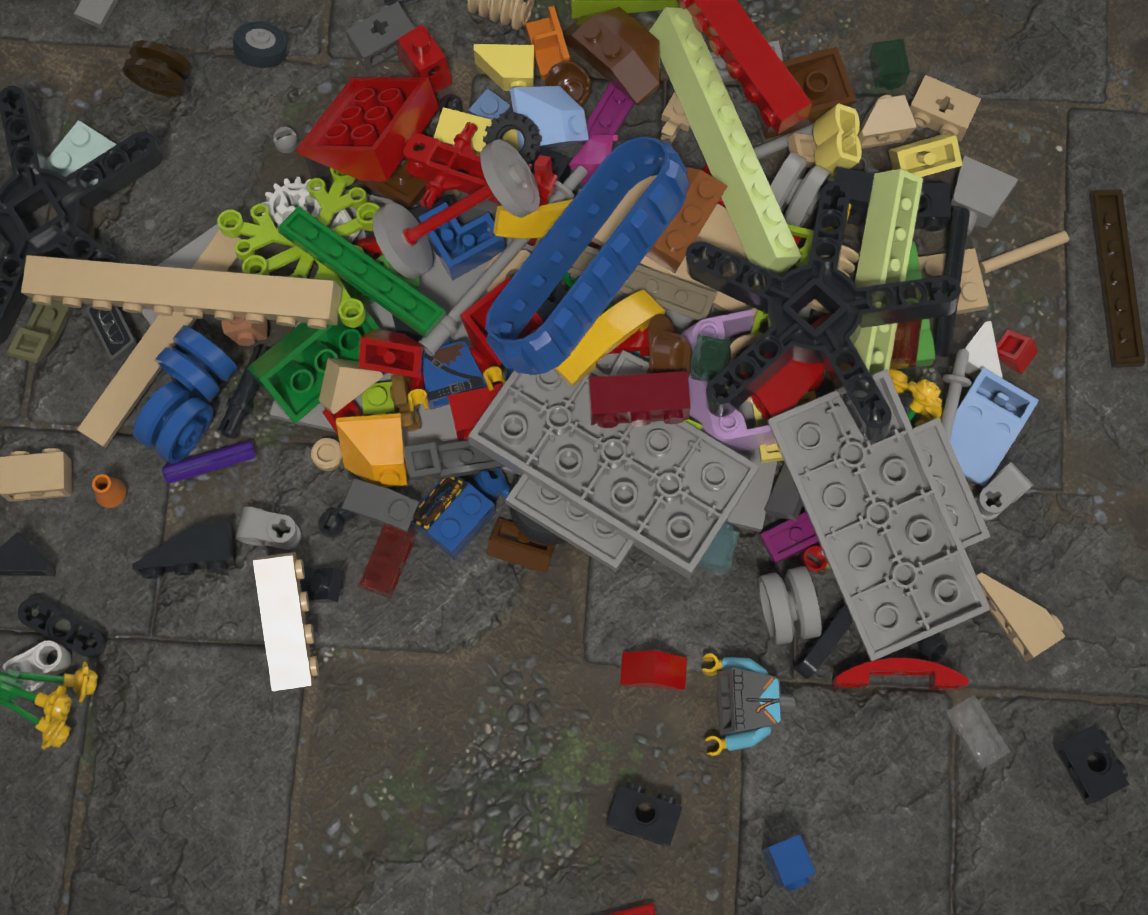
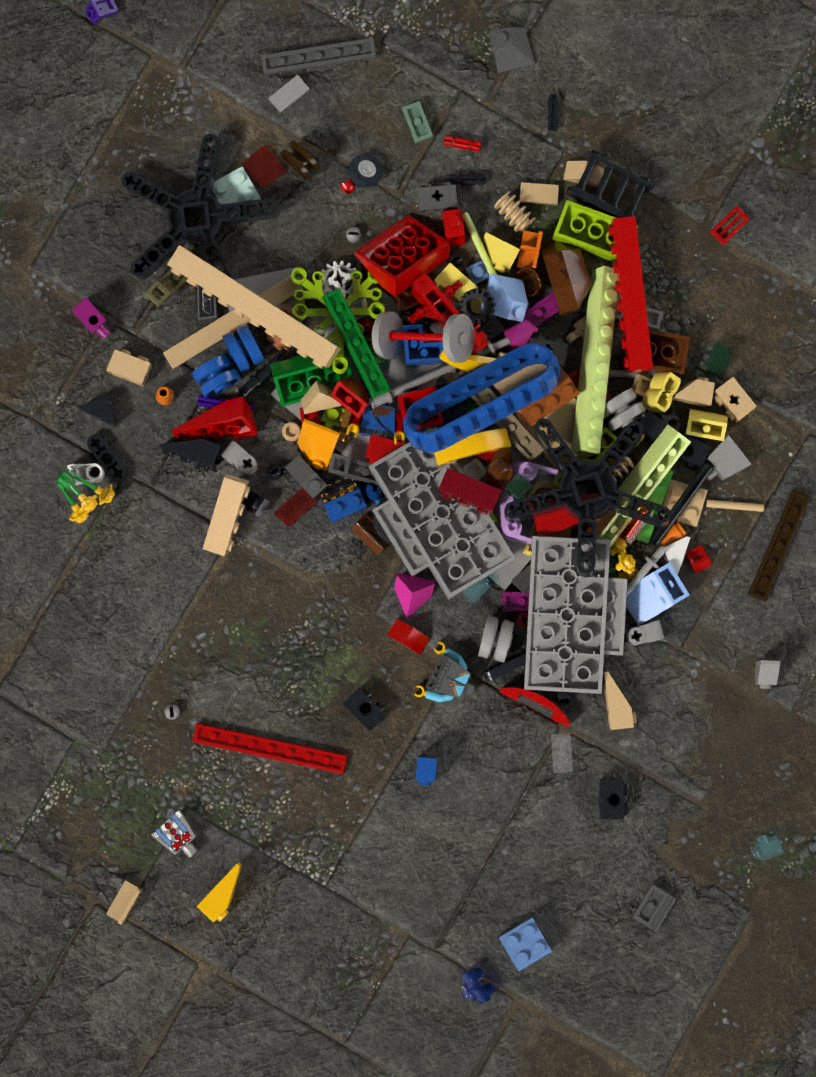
camera: 25 degrees right, 10 degrees up
(111, 109) = (263, 167): none -> clear red piece
(217, 482) = (225, 419): none -> red wedge
(245, 77) = (348, 186): none -> red hinge
(473, 72) = (478, 243): none -> yellowish green bar
(626, 600) = (412, 592): none -> dark pink slope
(965, 329) = (674, 534): none -> orange cone

